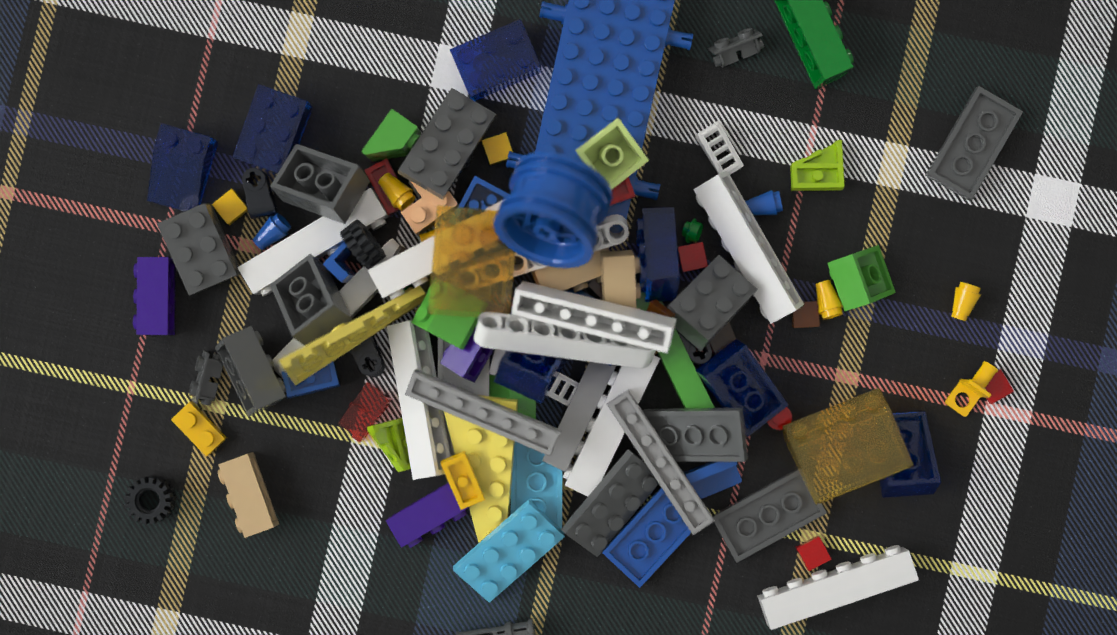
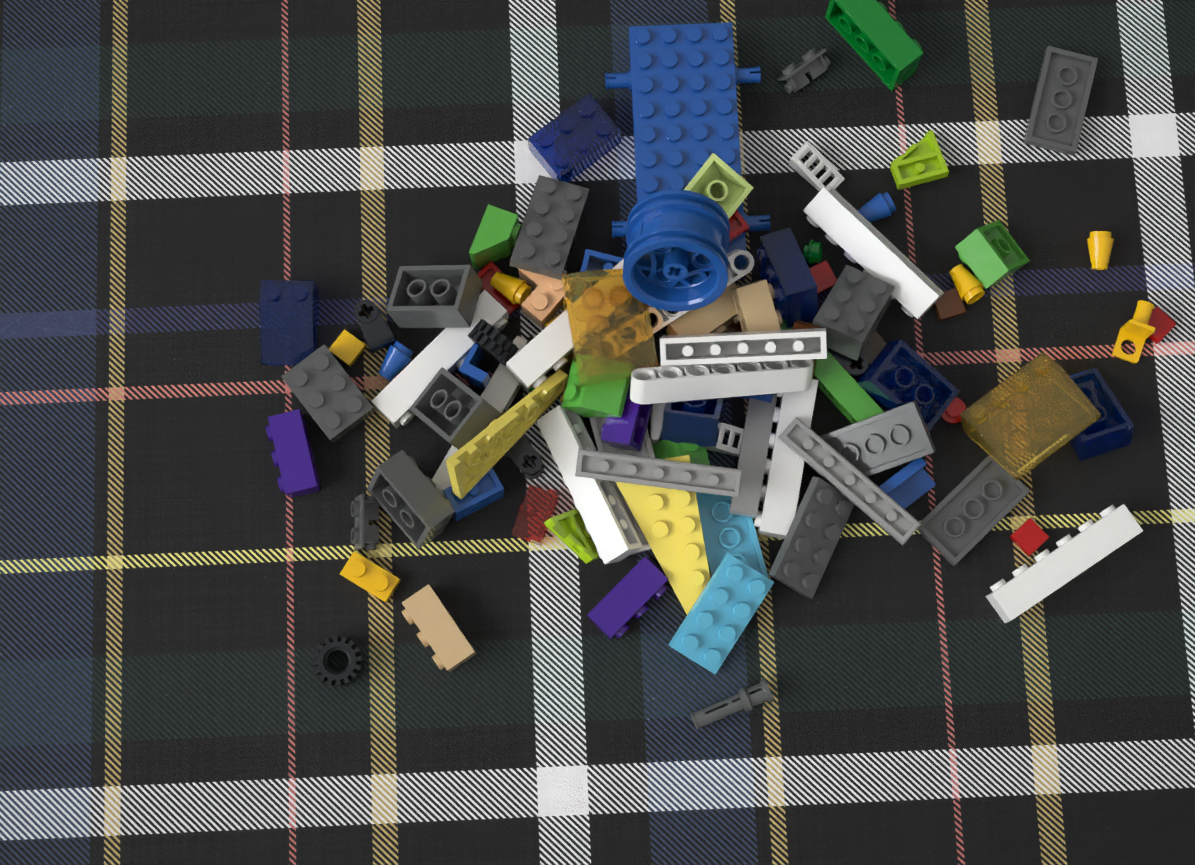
camera: 15 degrees left, 10 degrees down
(271, 129) = (371, 260): clear blue brick -> none
(462, 480) = (655, 549): yellow plate -> none
(497, 148) = (598, 224): yellow tile -> none
(647, 539) = (859, 565): blue plate -> none

